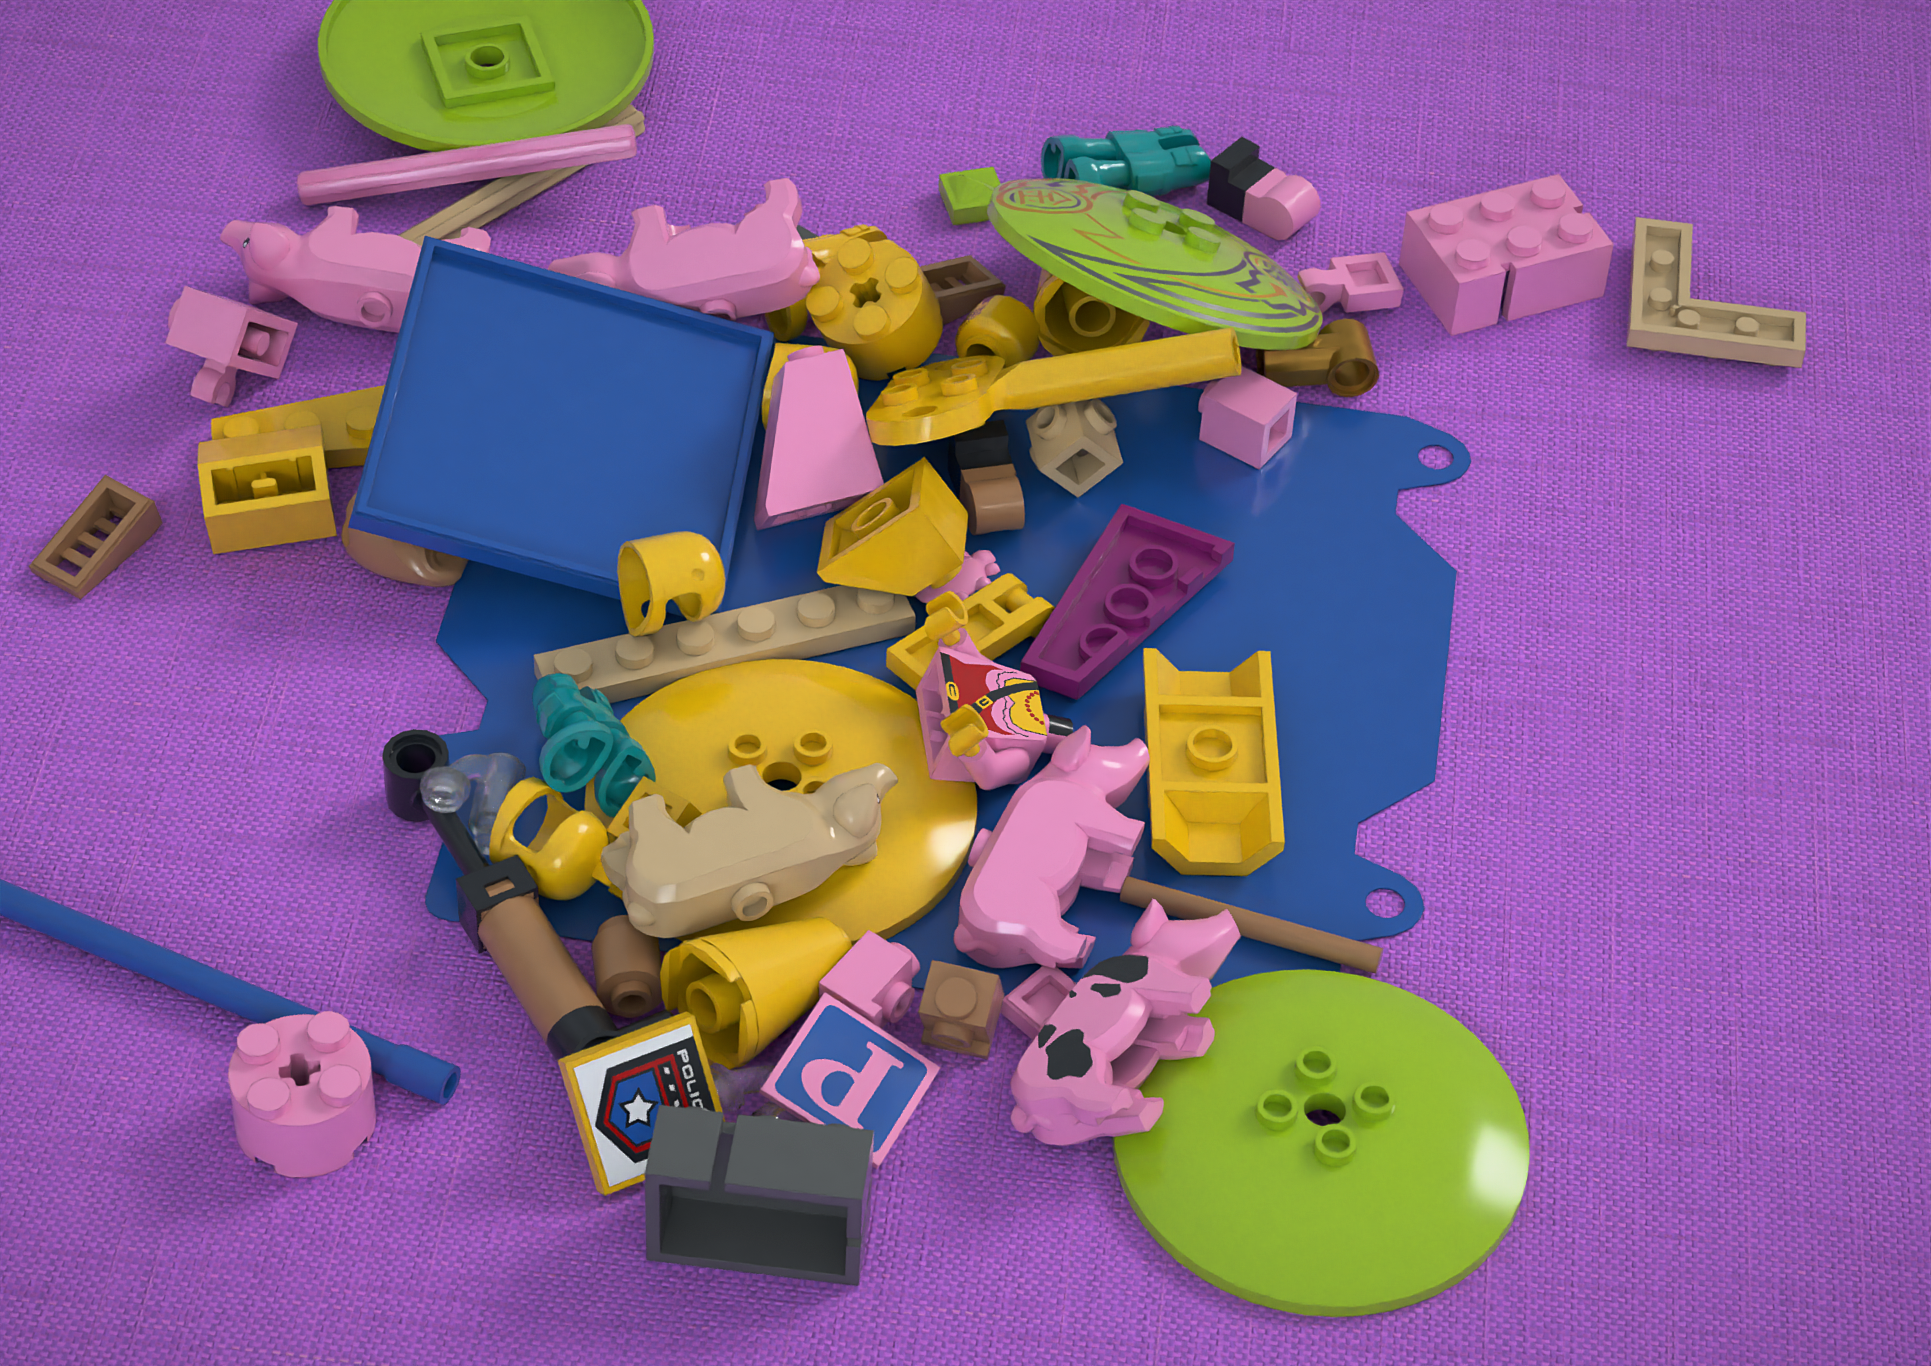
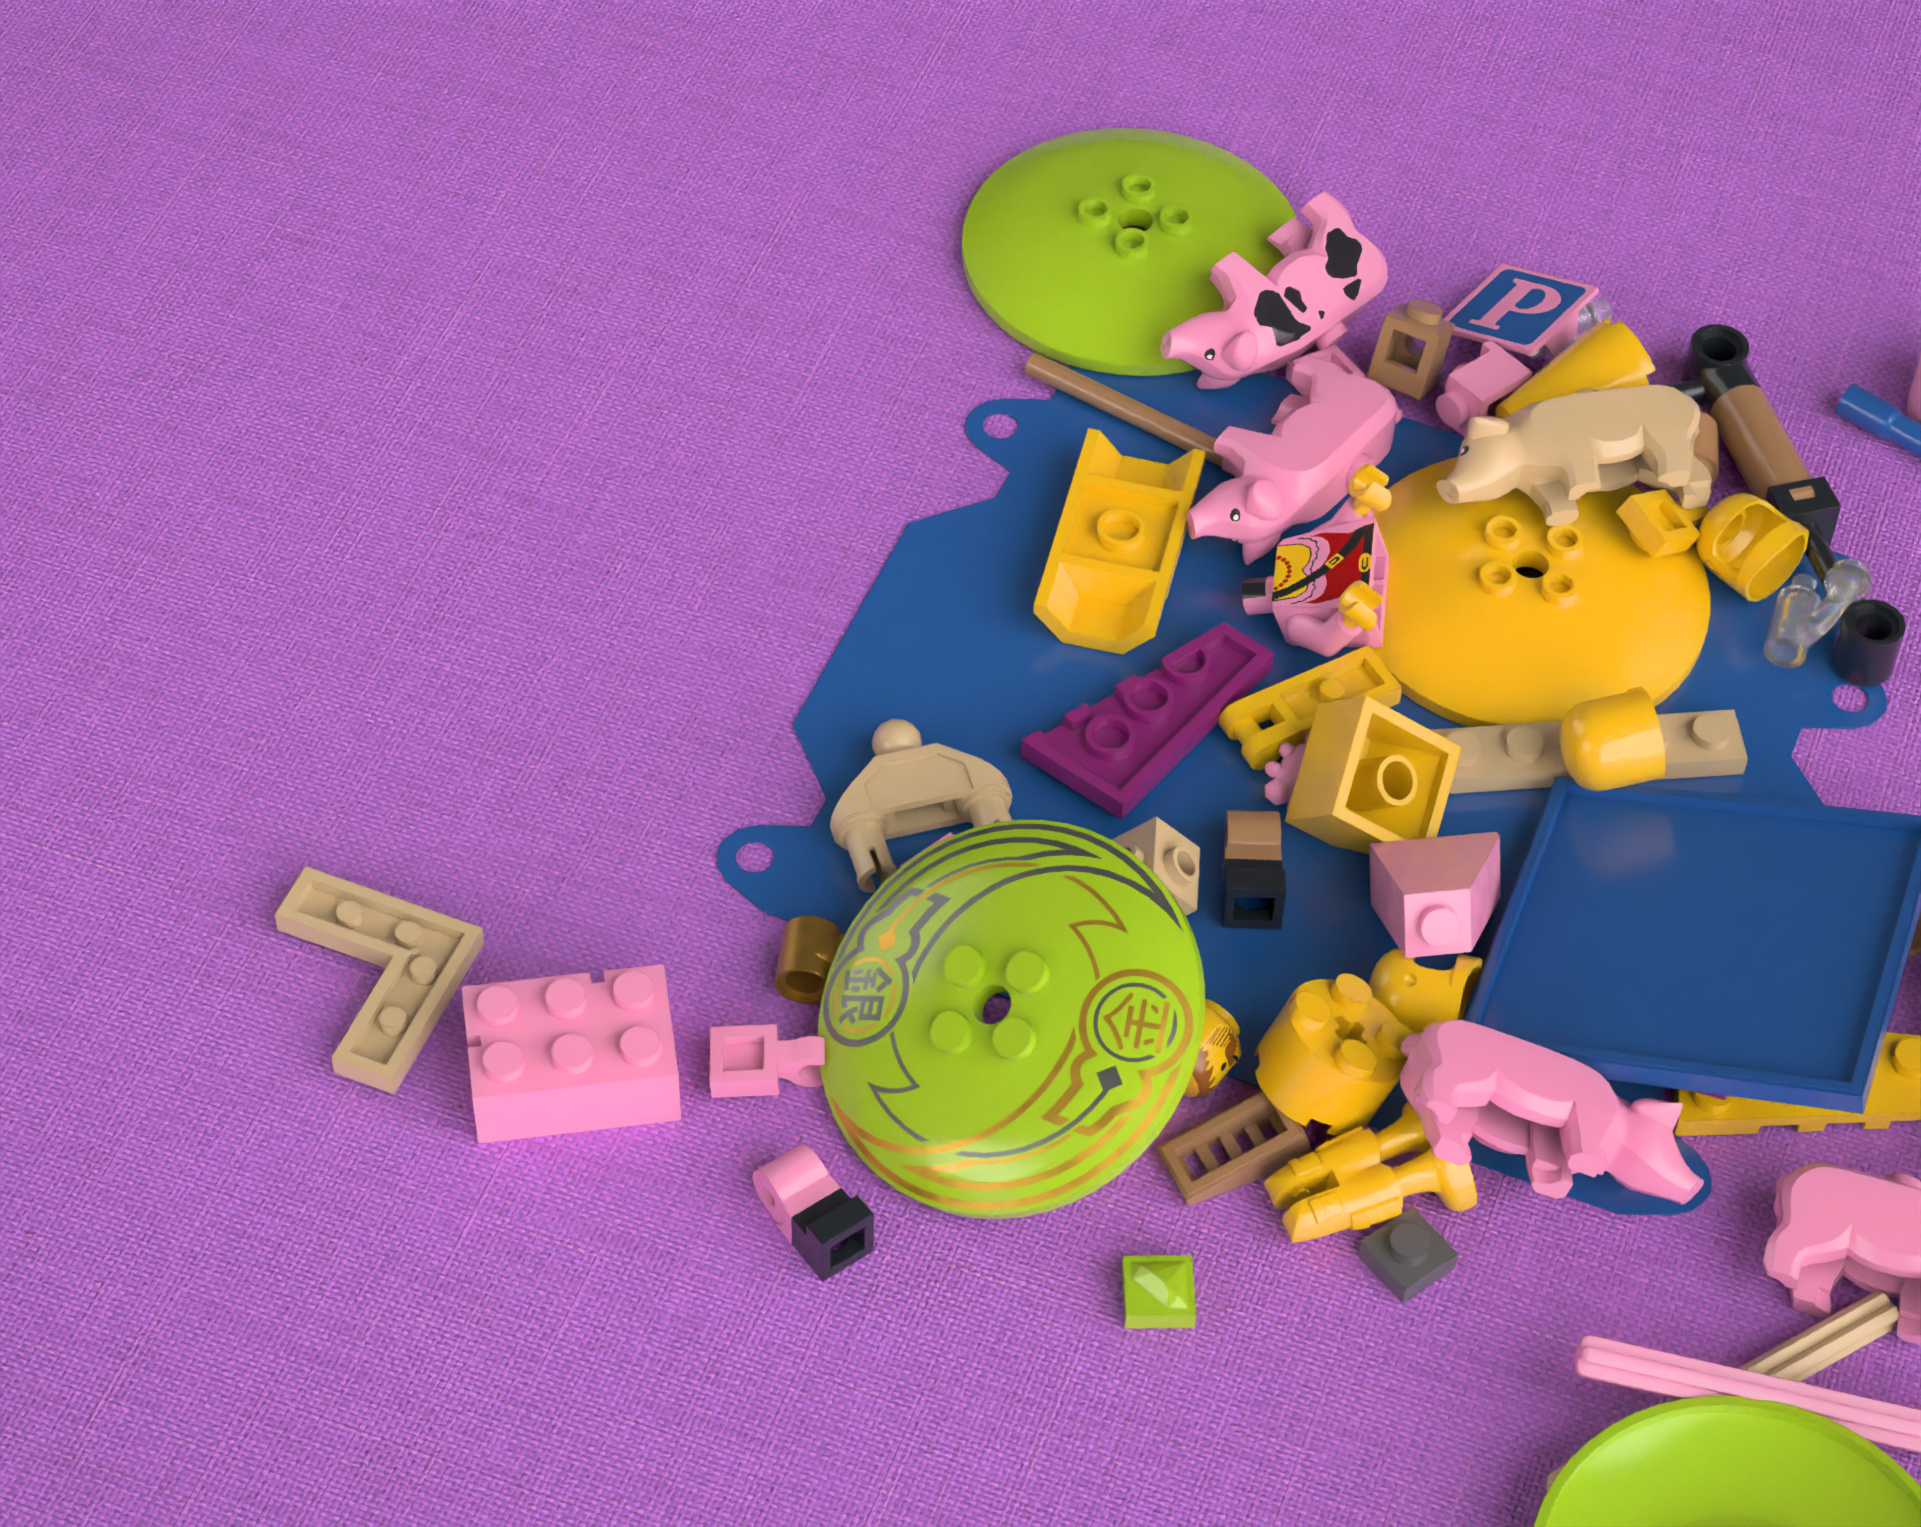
camera: 165 degrees left, 5 degrees up
(586, 743) = (1716, 642): teal piece -> none
(620, 1088) = (1696, 314): tile -> none
(758, 1195) = (1583, 226): dark grey piece -> none
(966, 390) = (1279, 906): yellow piece -> none
(1130, 159) = (940, 1280): teal piece -> none
(1305, 497) = (912, 792): none -> tan connector

